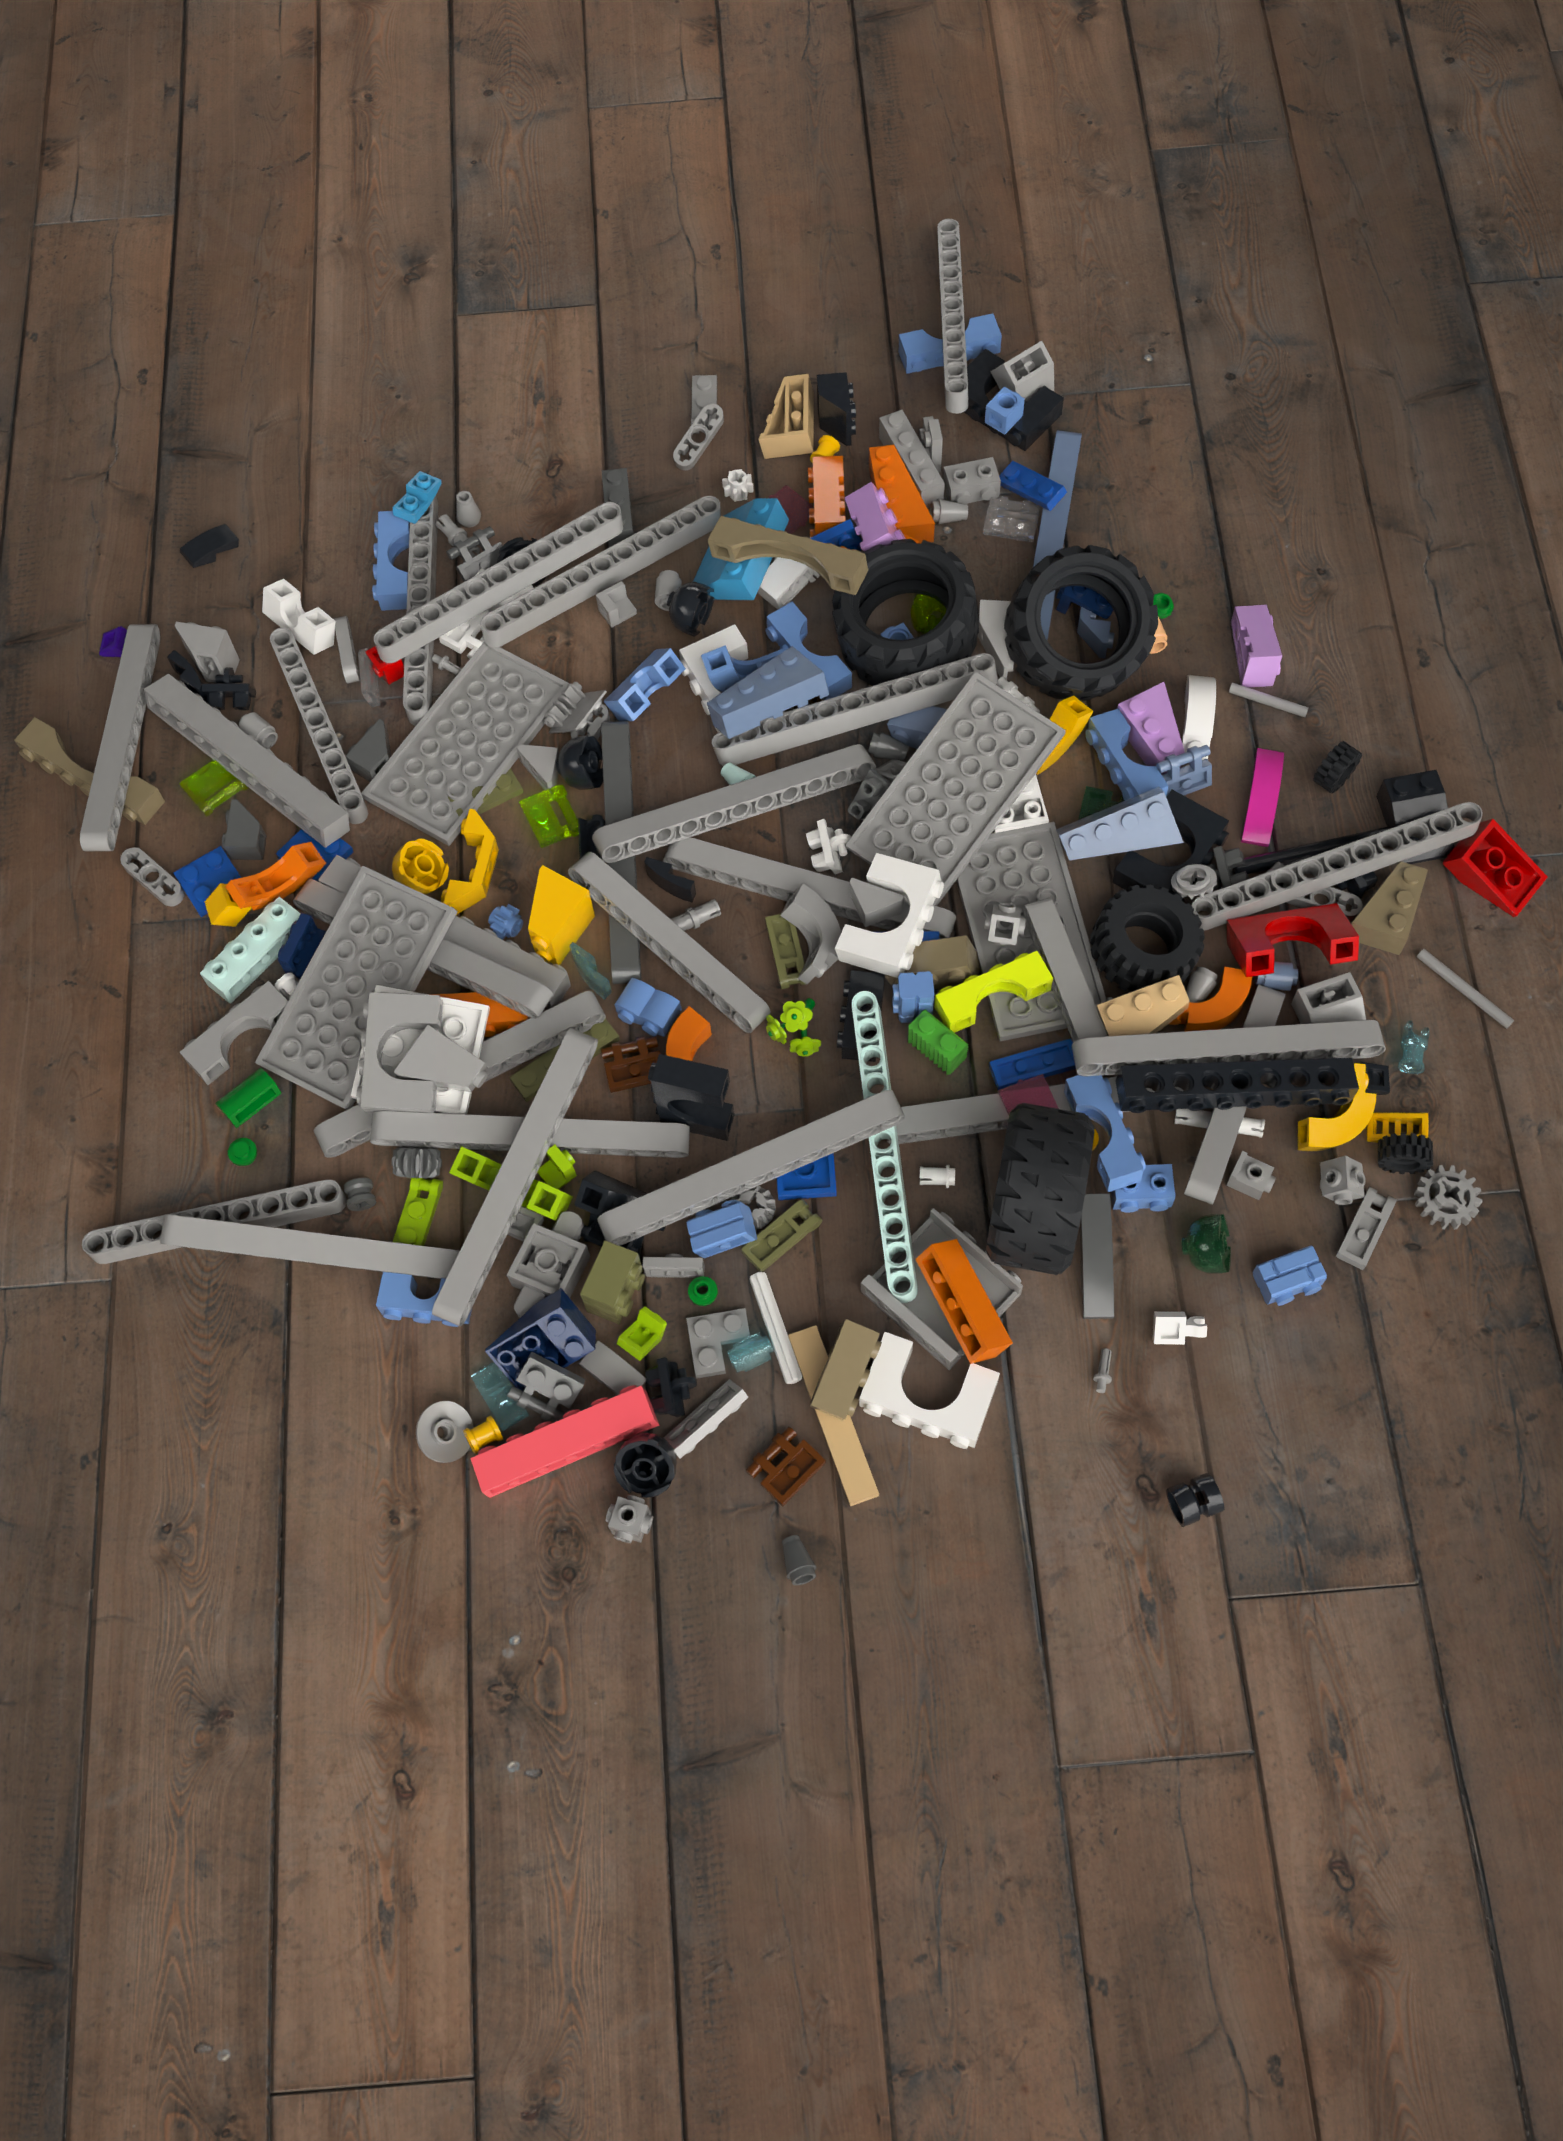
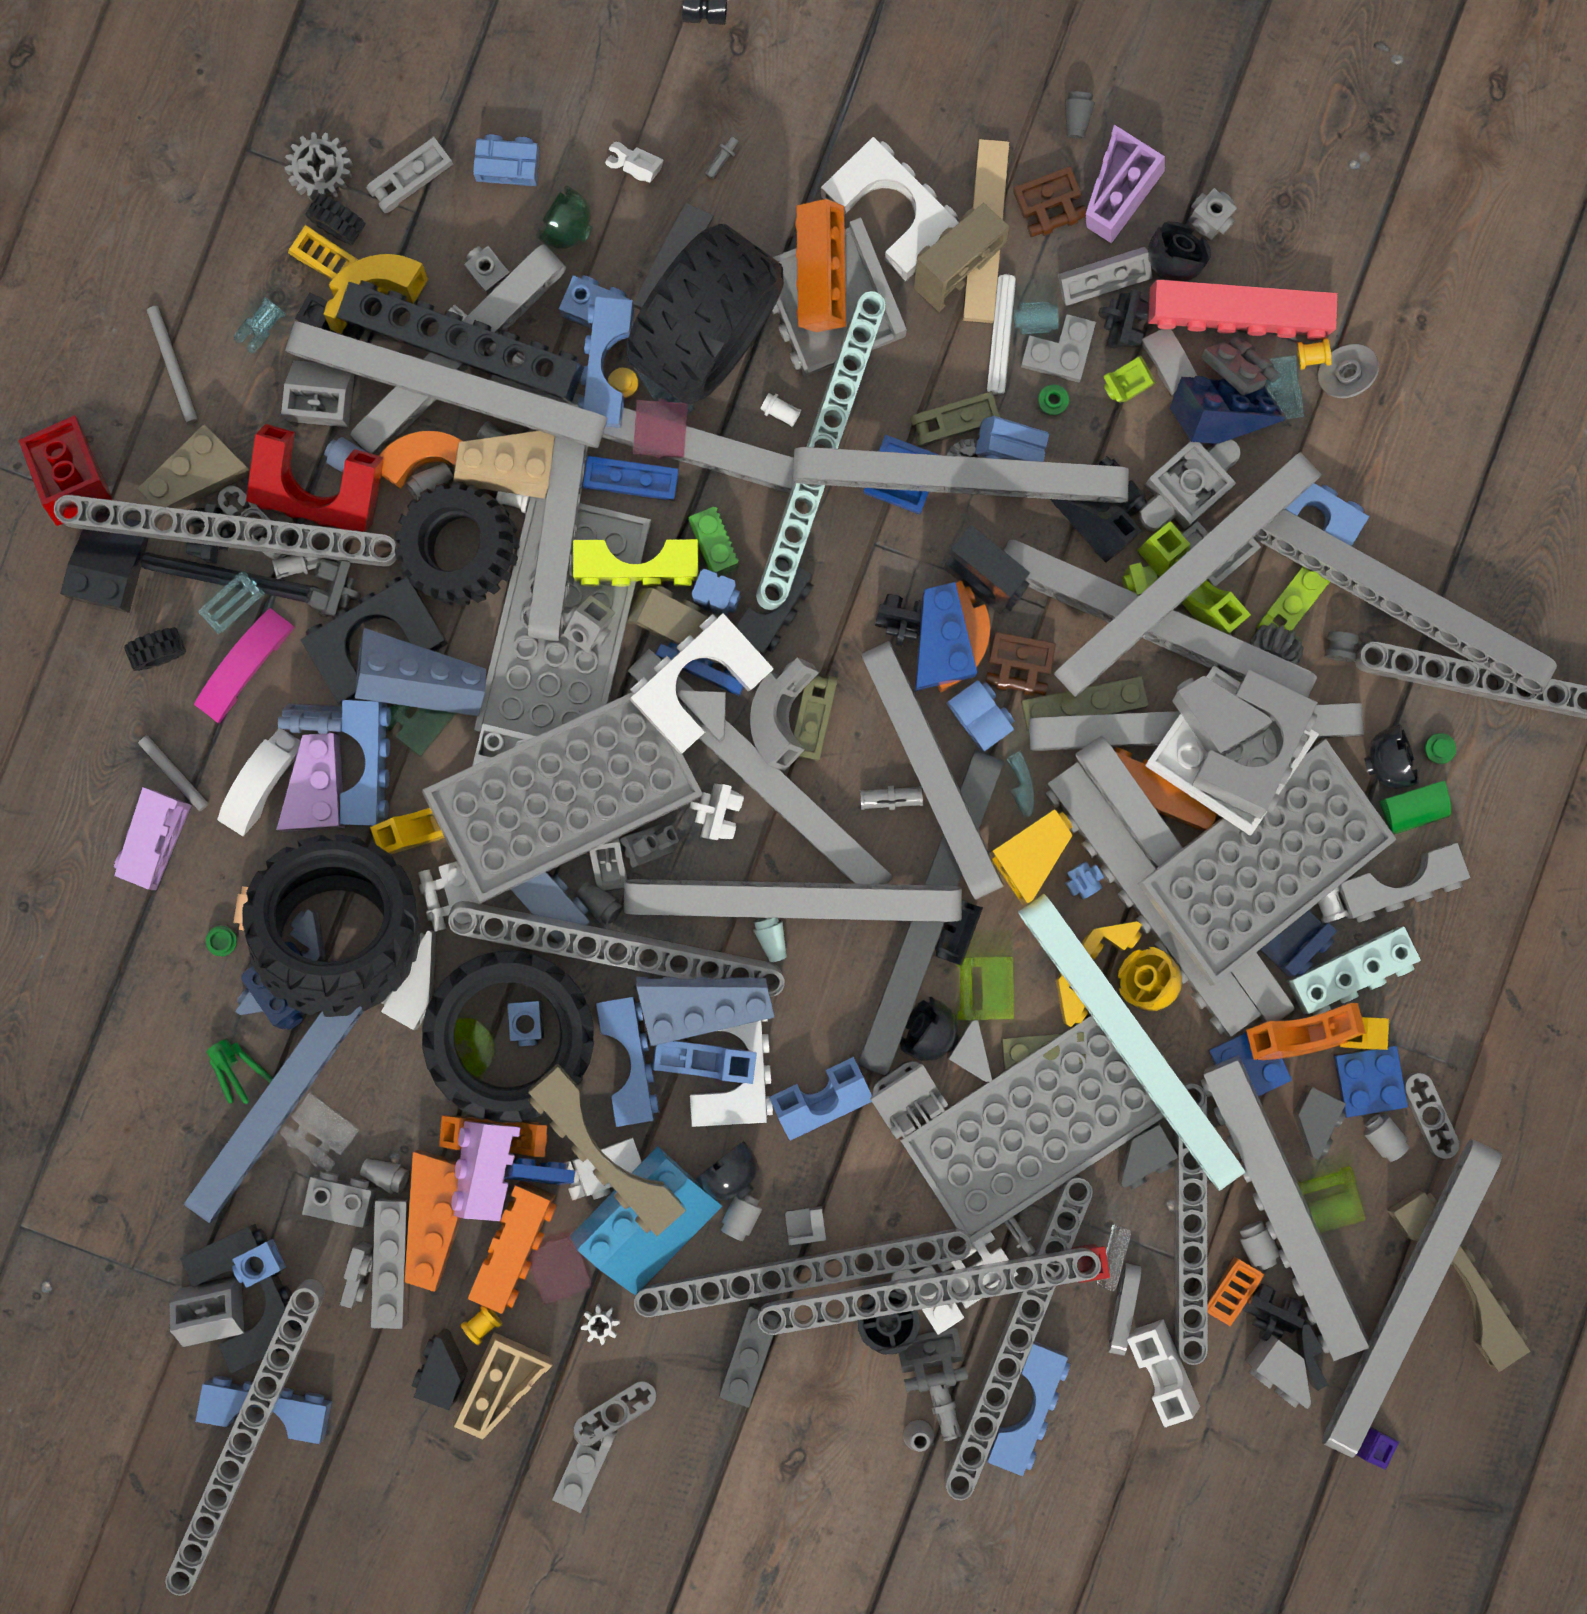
camera: 160 degrees left, 20 degrees up
(182, 844) = (1386, 1137): none -> light grey brick
(205, 546) = (1228, 1534): black slope -> none
(271, 711) = (1242, 1298): none -> orange slope
(280, 1118) = (1392, 759): none -> black cylinder
(417, 812) = (1131, 1042): none -> light aqua beam
(418, 497) = (972, 1470): dark azure slope -> none
(612, 1283) = (1139, 434): olive brick -> none
(662, 875) = (901, 859): black slope -> none
(673, 1266) = (1070, 433): light grey plate -> none
(702, 1029) = (943, 640): none -> blue wedge
(726, 1507) = (1123, 183): none -> lavender wedge
(735, 1057) = (899, 621): none -> black hips
(794, 1017) = (844, 623): lime plant -> none
(1032, 485) = (278, 1157): blue plate -> none
(1111, 533) = (223, 1058): none -> green plant
(1184, 877) = (381, 593): light grey gear -> none
(1296, 844) = (249, 586): none -> clear light blue tile
(1342, 1180) = (407, 223): light grey brick -> none

